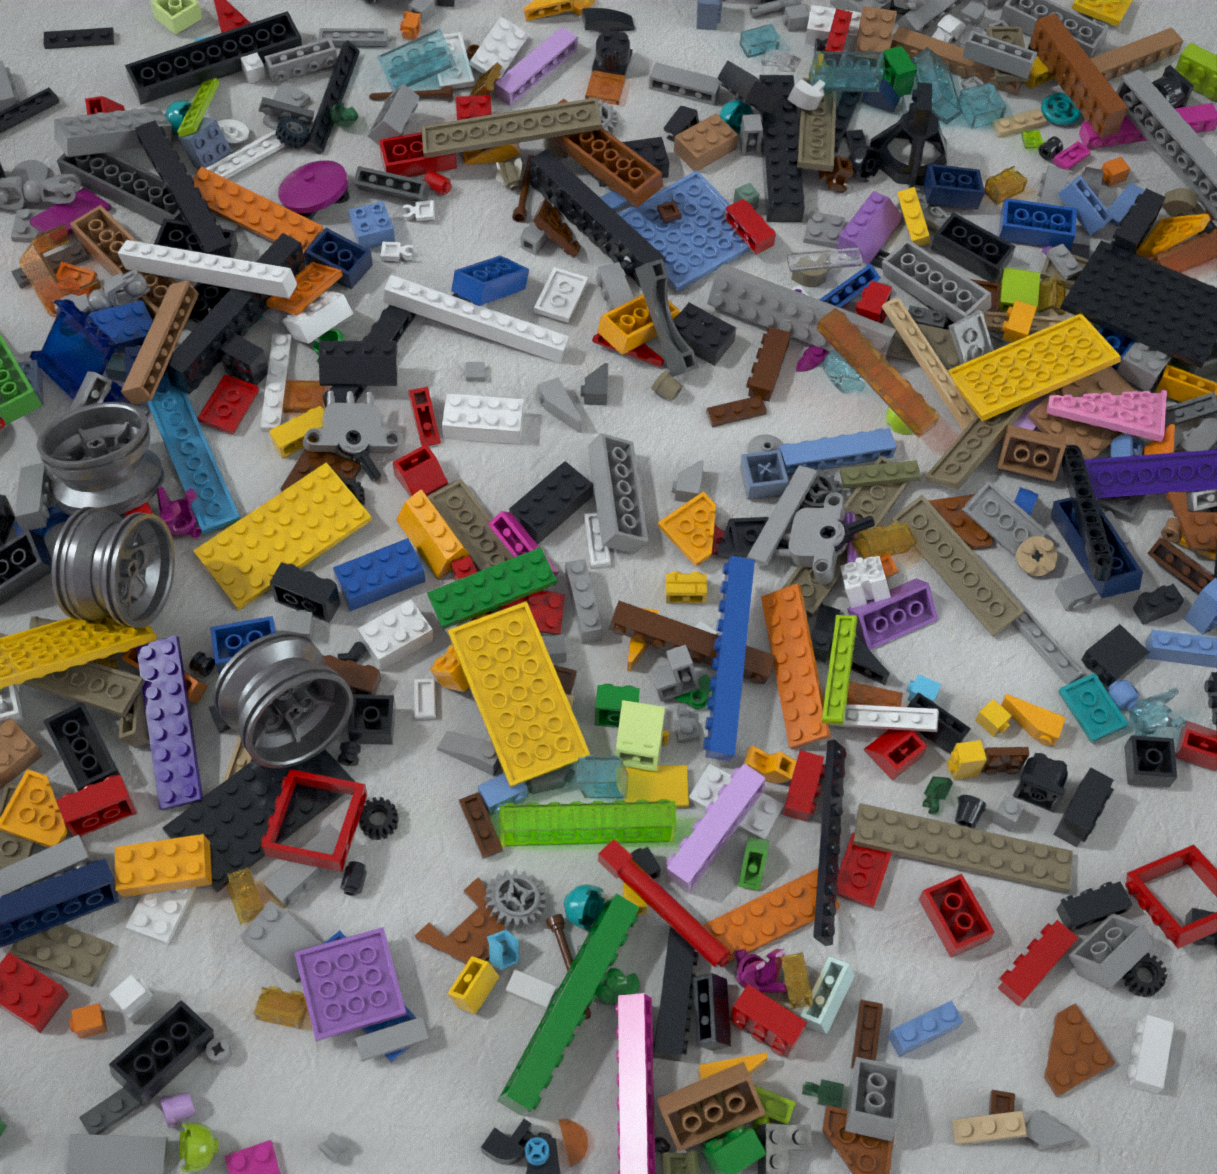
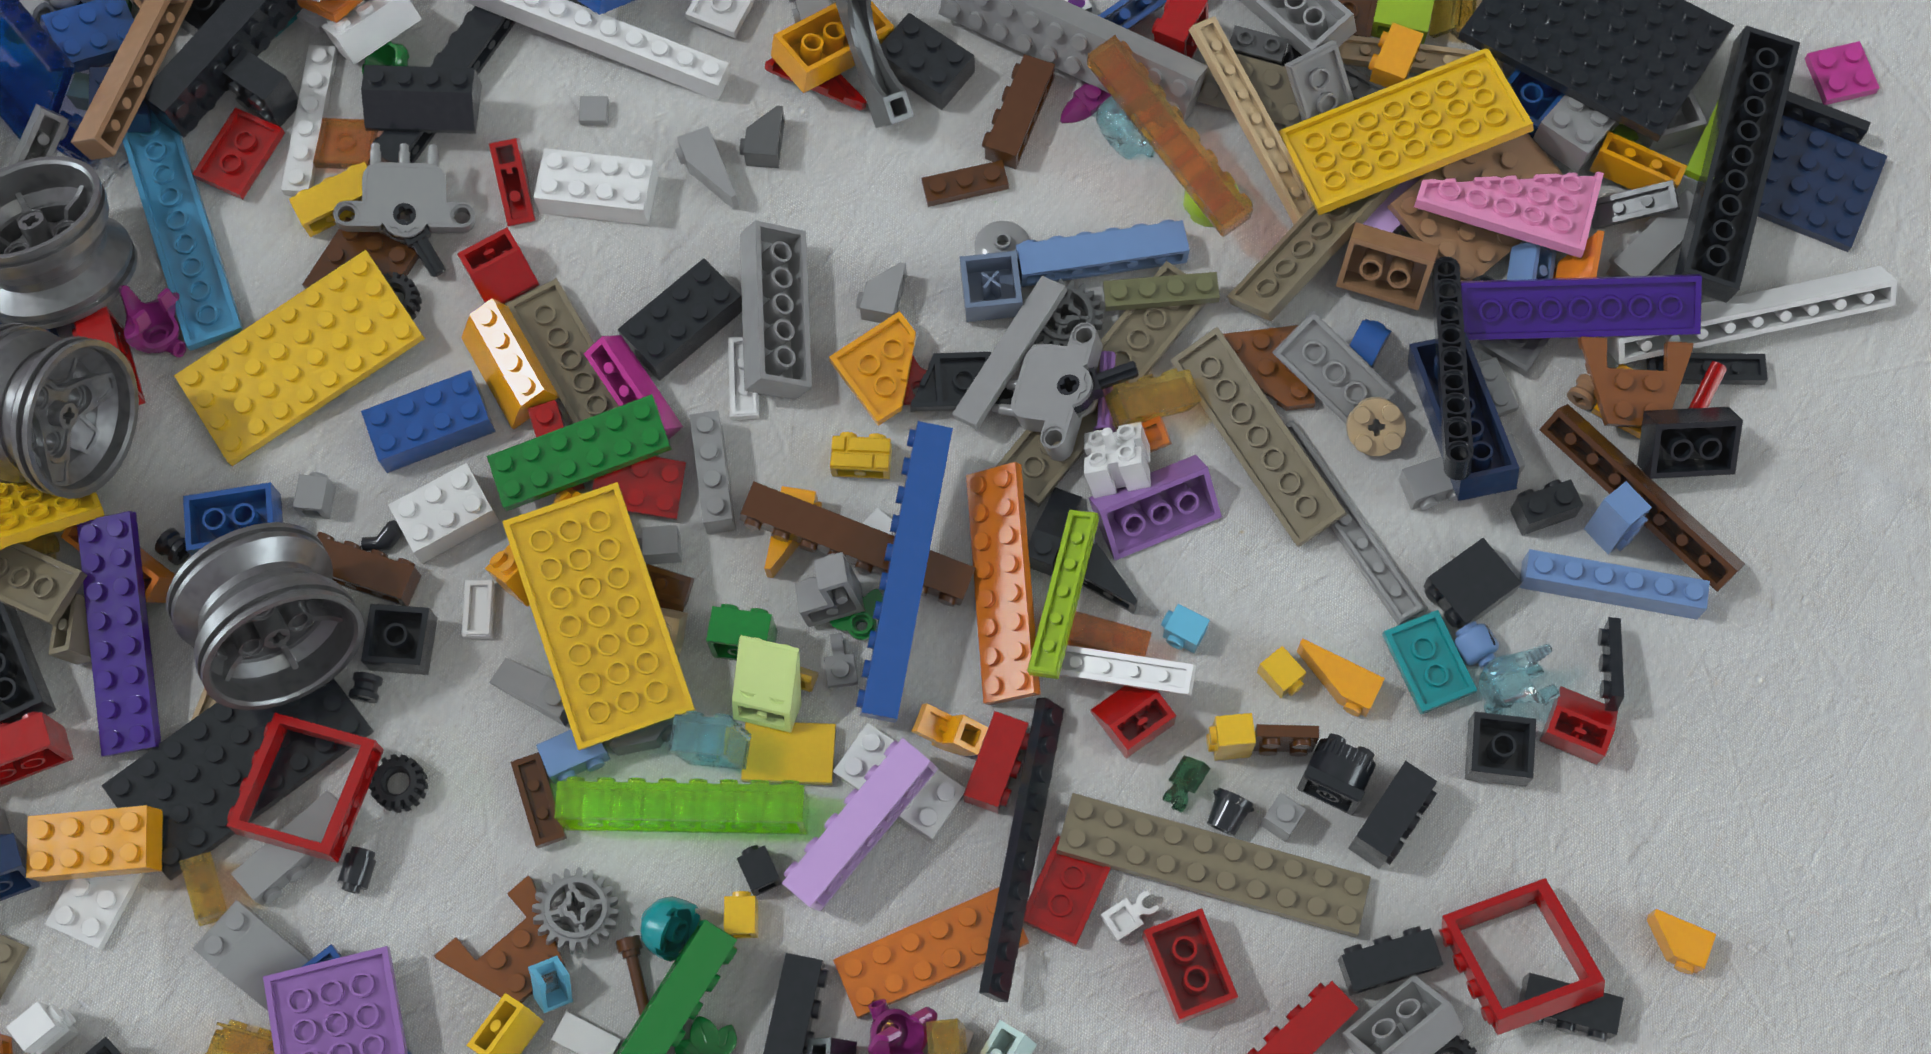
camera: 10 degrees right, 10 degrees up
(305, 591) = (321, 445): black brick -> none
(621, 864) = (776, 934): red brick -> none
(667, 386) = (866, 142): dark tan piece -> none
(753, 863) = (913, 873): bright green slope -> none
(906, 886) = (1125, 918): none -> white plate
(949, 729) = (1212, 689): black brick -> none

